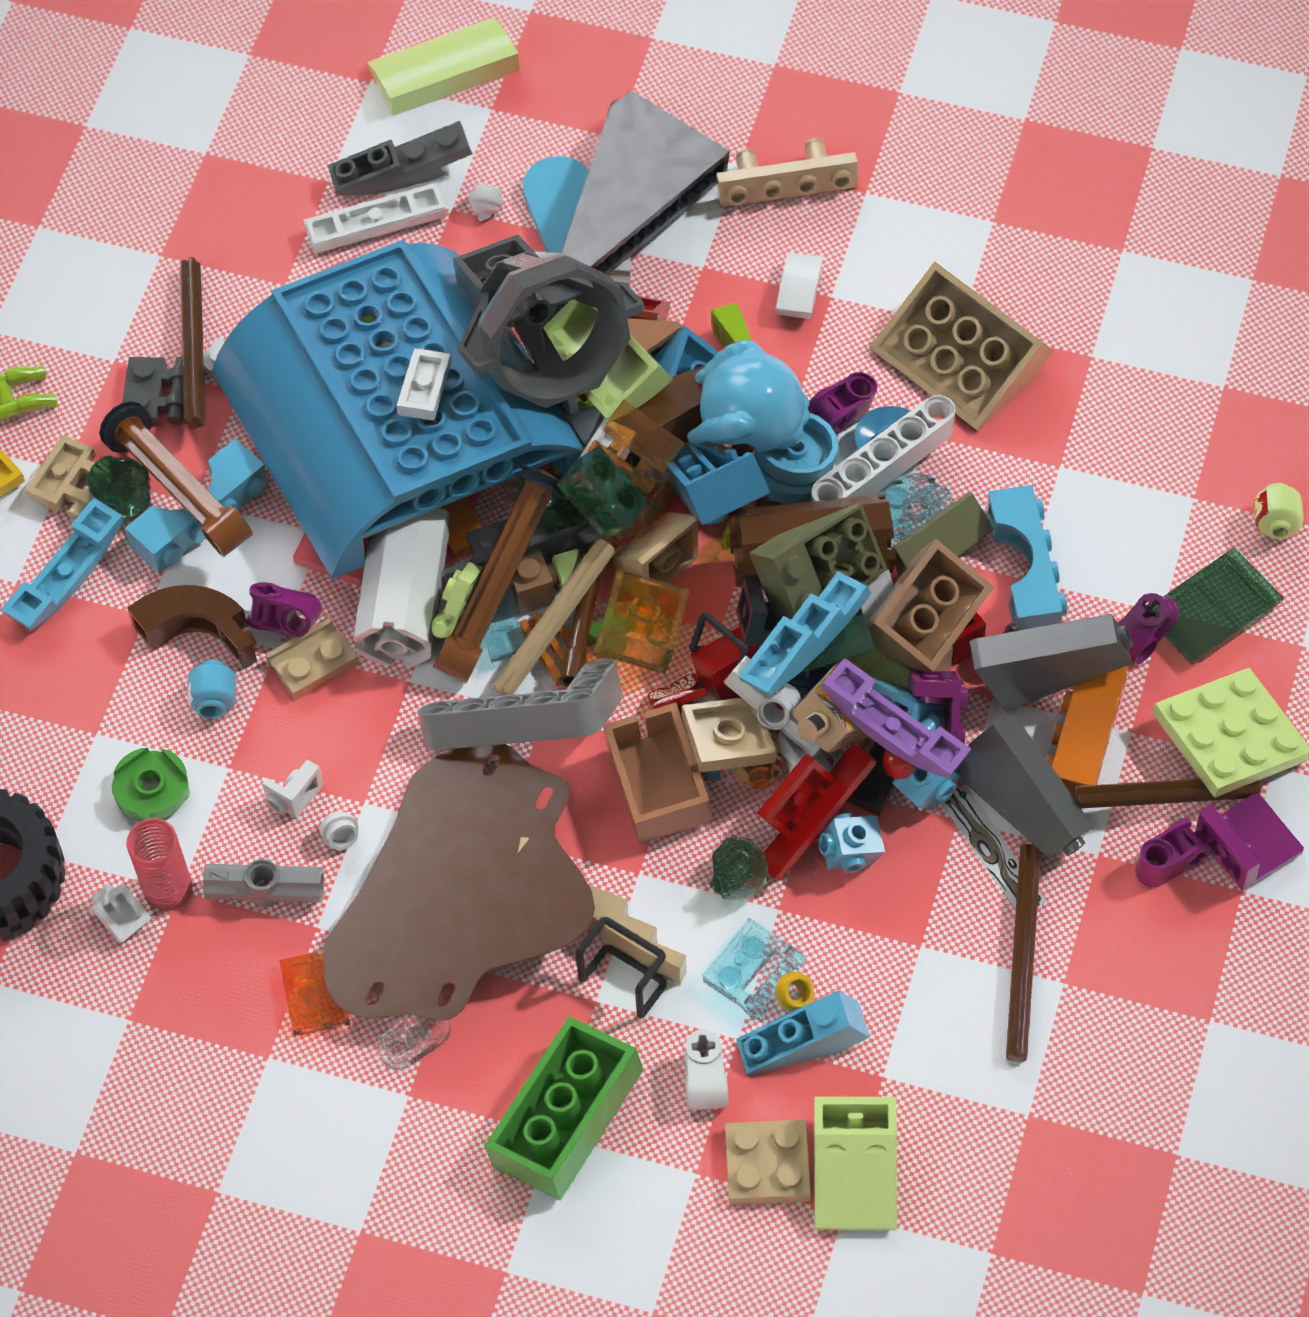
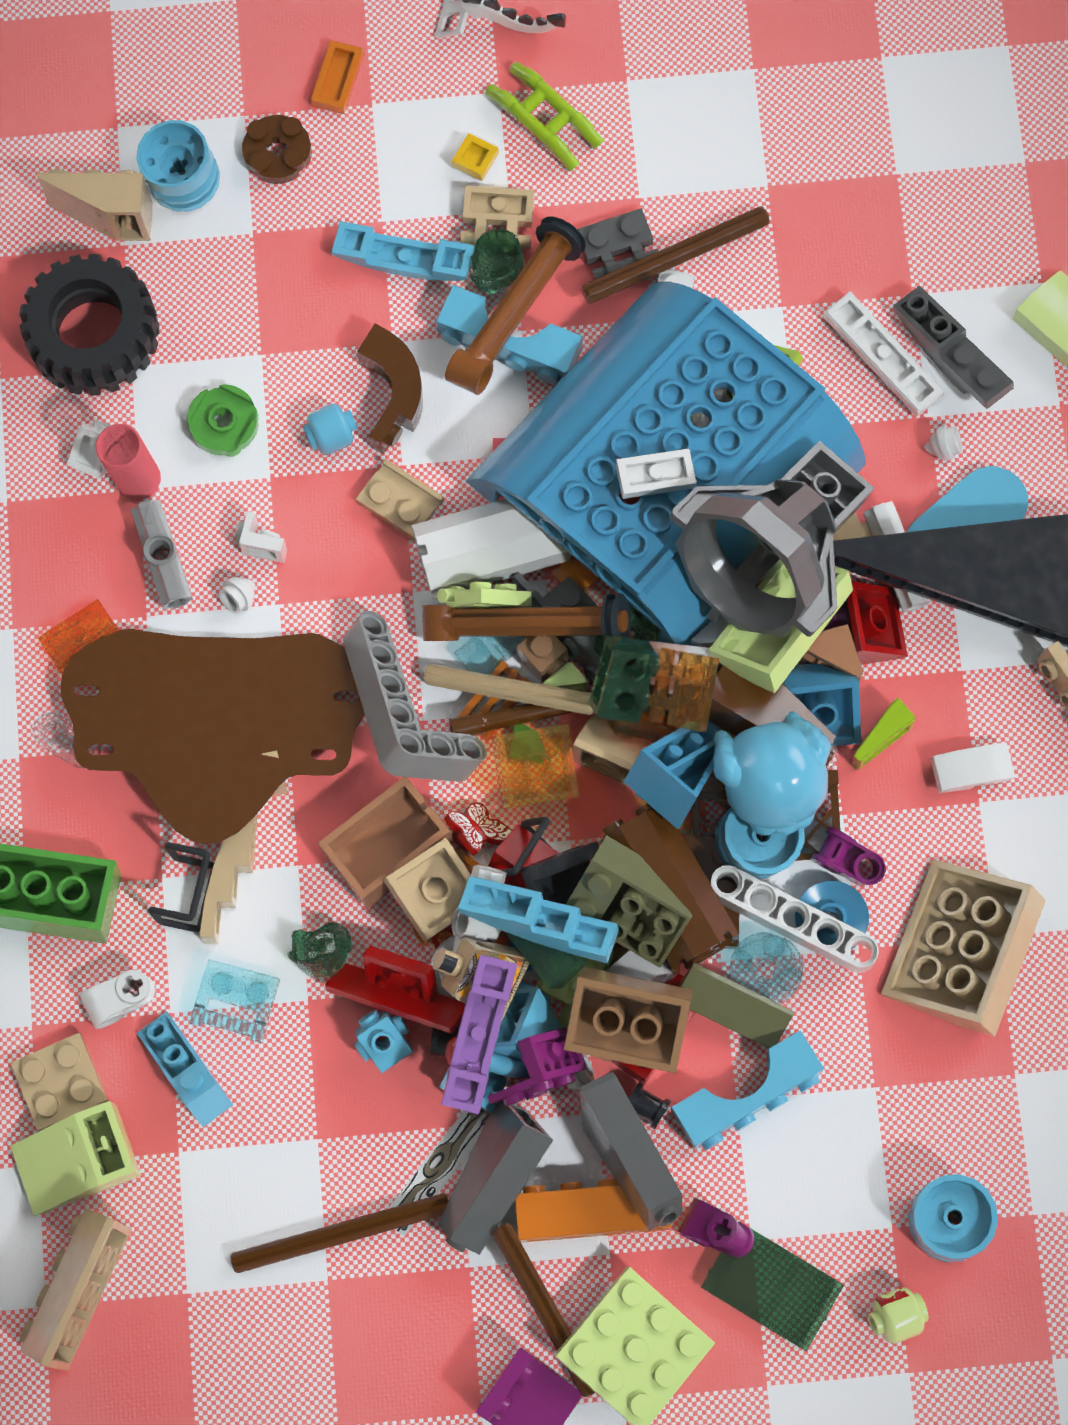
camera: 70 degrees right, 15 degrees up
(275, 609) = (430, 458): magenta piece -> none
(804, 987) = (218, 1051): yellow plate -> none
(992, 1195) = (75, 1290): none -> tan slope
(1175, 849) = (490, 1336): magenta piece -> none
(1208, 436) = (936, 1234): none -> medium azure wheel

